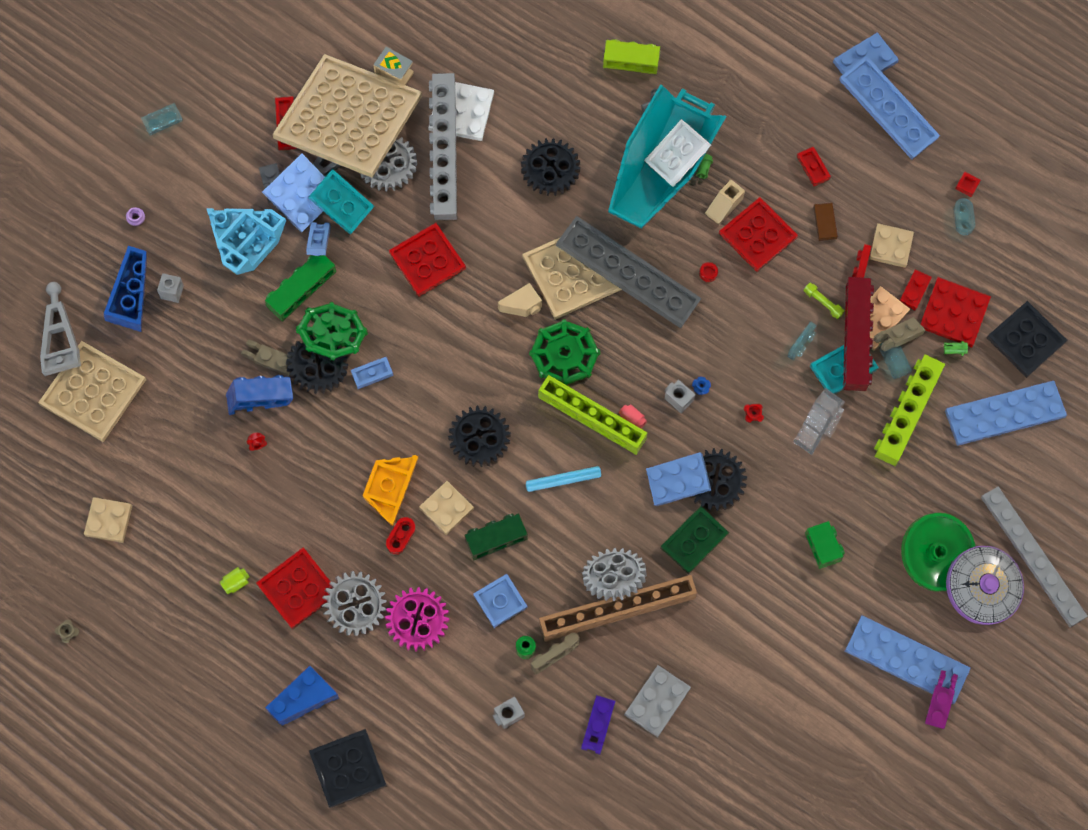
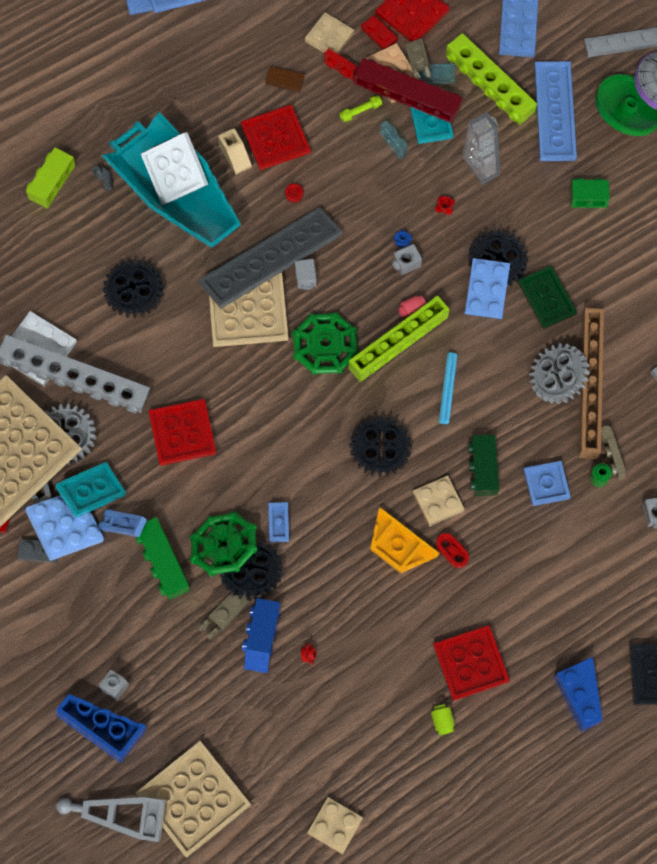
camera: 70 degrees left, 0 degrees up
(133, 212) = (18, 691): lavender plate -> none
(245, 236) = (88, 593): medium azure wedge -> none
(348, 587) = (506, 614): light grey gear -> none
(400, 614) = (549, 548): dark pink gear -> none
(521, 302) = (261, 361): tan slope -> none
(626, 310) = (305, 274): none -> light grey brick
(813, 166) = (228, 67): red plate -> none
(902, 483) = (555, 111): none -> medium blue plate
(956, 348) = (448, 19): bright green pin -> none

